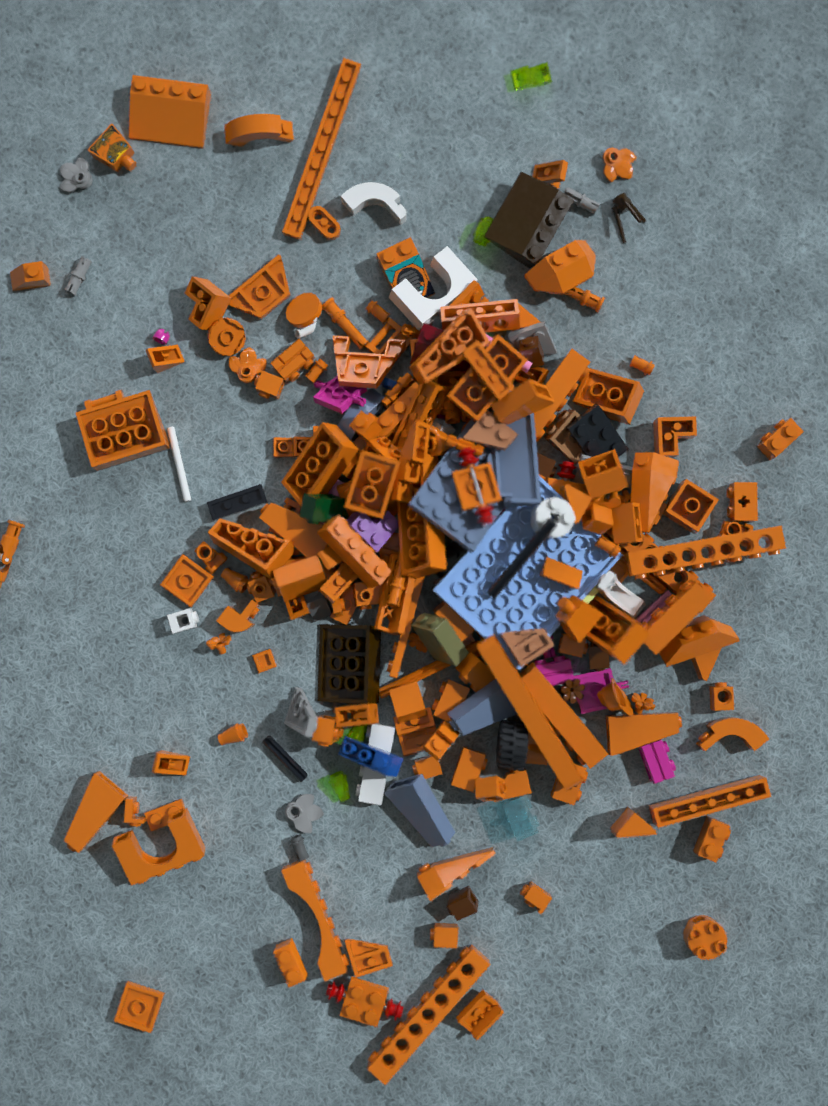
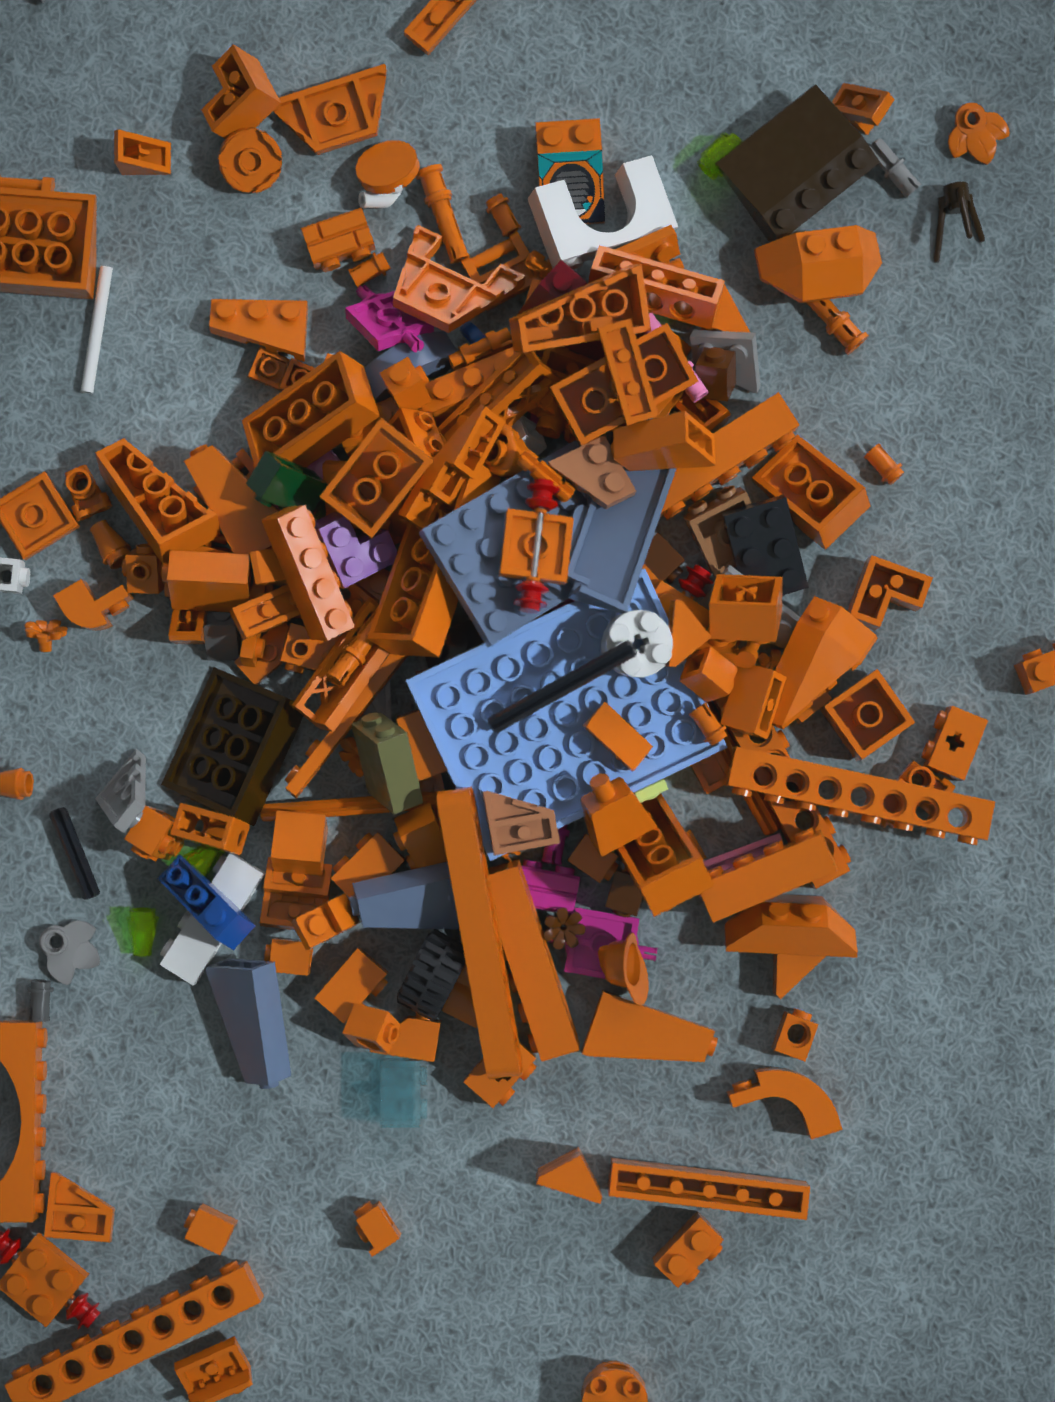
camera: 25 degrees right, 0 degrees up
(161, 337) = (148, 121): dark pink hinge -> none
(237, 502) = (162, 425): black plate -> none
(247, 362) = (265, 213): orange plate -> none
(264, 660) = (104, 689): orange tile -> none
(269, 385) = (285, 262): orange brick -> none
(270, 423) = (269, 323): none -> orange wing
(324, 223) = (477, 44): orange plate -> none
(374, 194) = (567, 26): white arch -> none
(440, 875) = (240, 1131): orange wedge -> none
(462, 903) = (257, 1190): reddish brown brick -> none
(619, 595) = (699, 809): white arch -> none
(642, 702) = (667, 993): orange plant -> none
(657, 762) = (652, 1093): dark pink brick -> none

